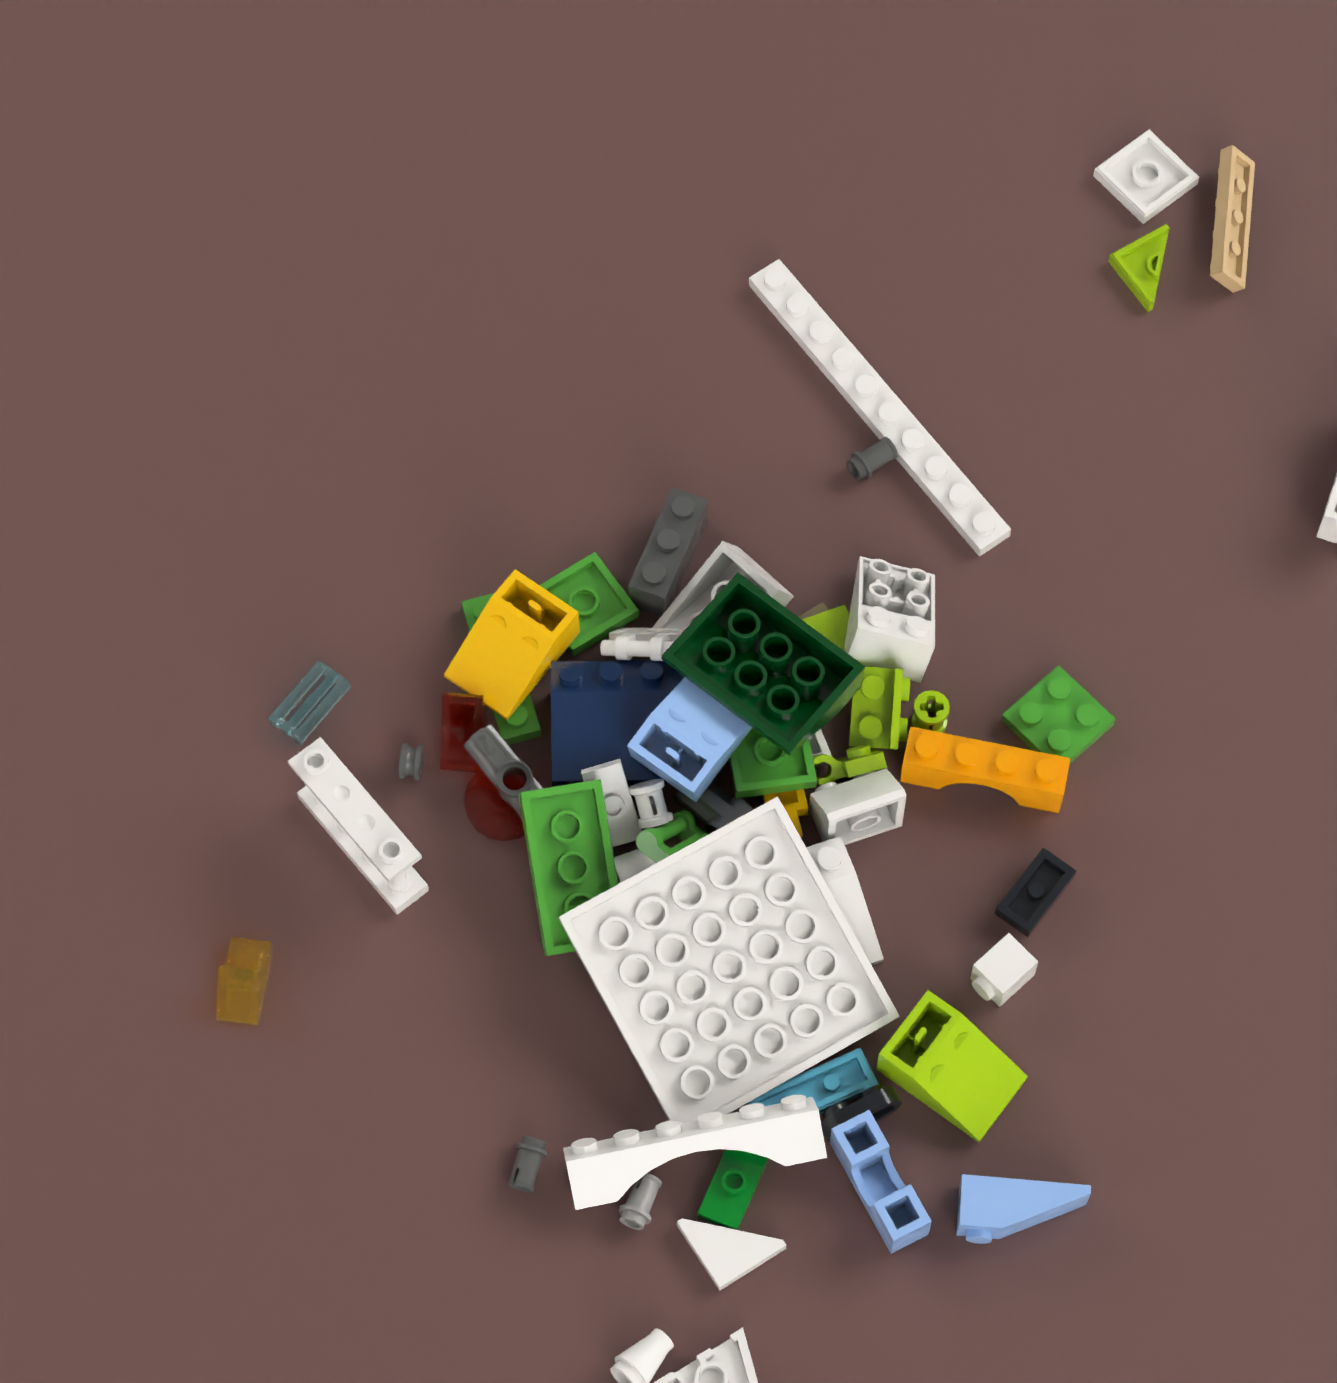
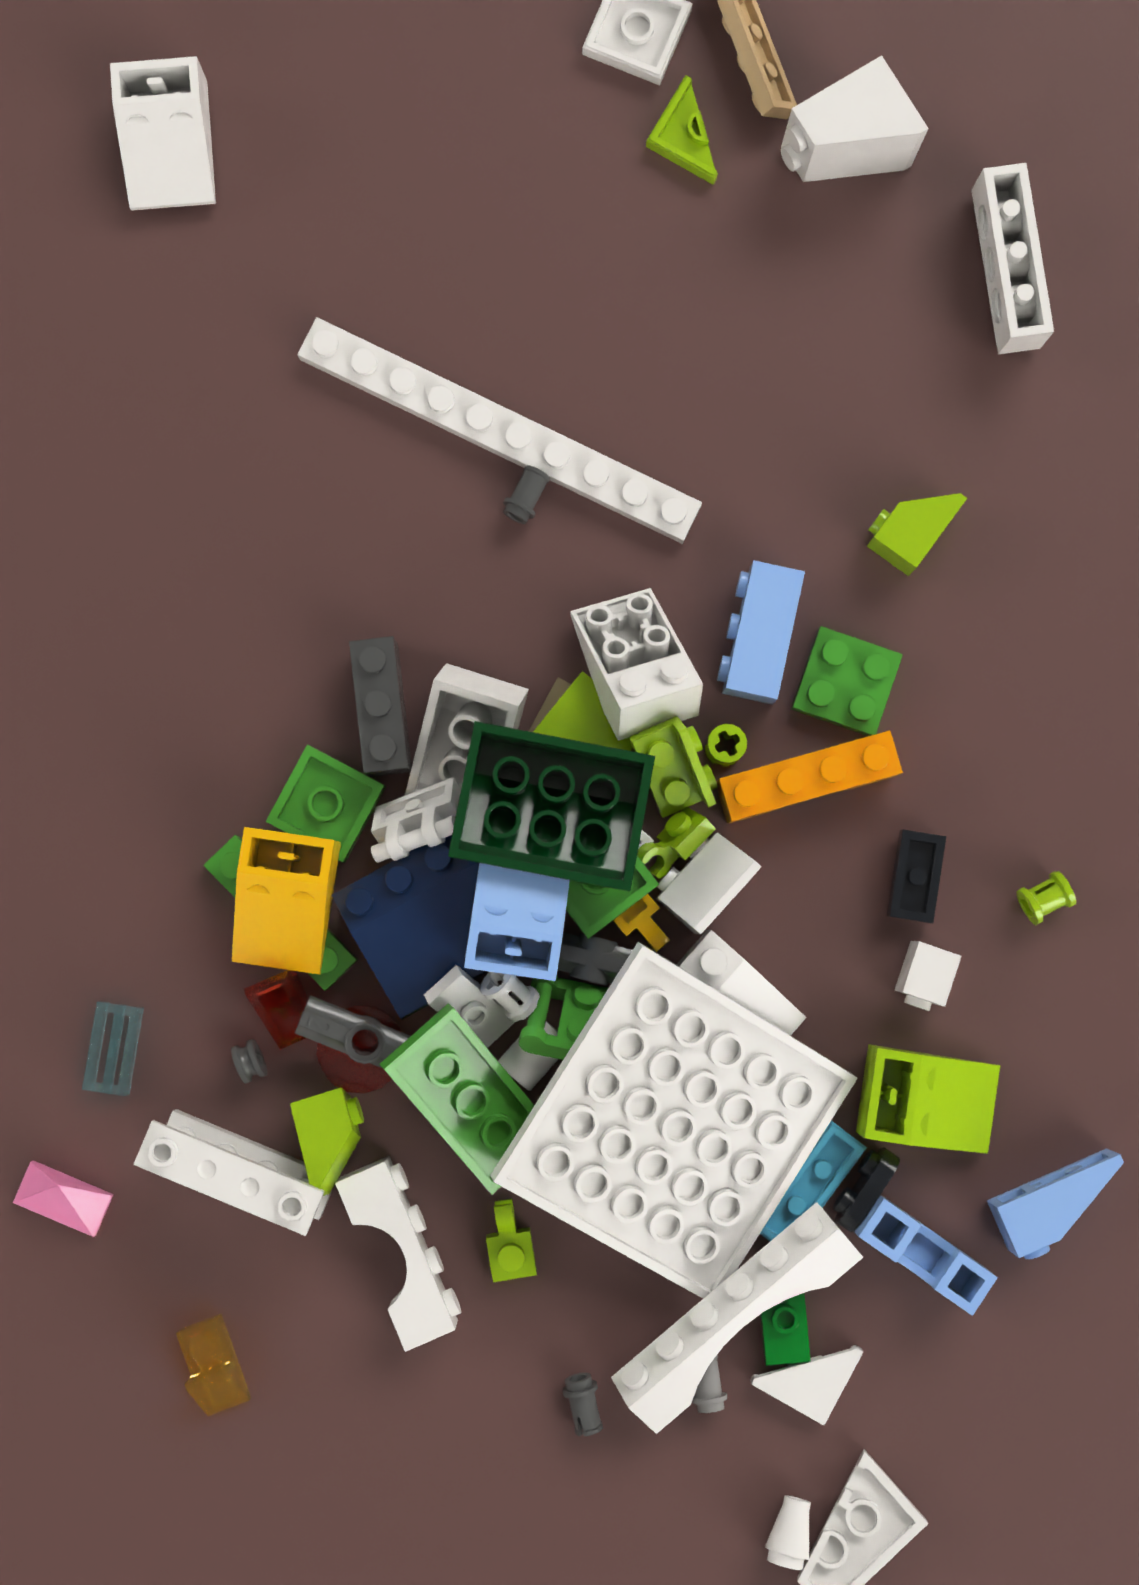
camera: 30 degrees left, 20 degrees up
(203, 794) = (63, 1198): none -> bright pink slope
(440, 1013) = (378, 1199): none -> white arch
(444, 842) = (327, 1134): none -> lime slope
(537, 1013) = (510, 1248): none -> lime plate
(736, 81) = (164, 132): none -> white slope
(1006, 645) = (761, 632): none -> light blue brick
(1137, 962) = (1046, 897): none -> lime bush
(1175, 628) = (912, 529): none -> lime slope
(1276, 314) = (854, 128): none -> white slope

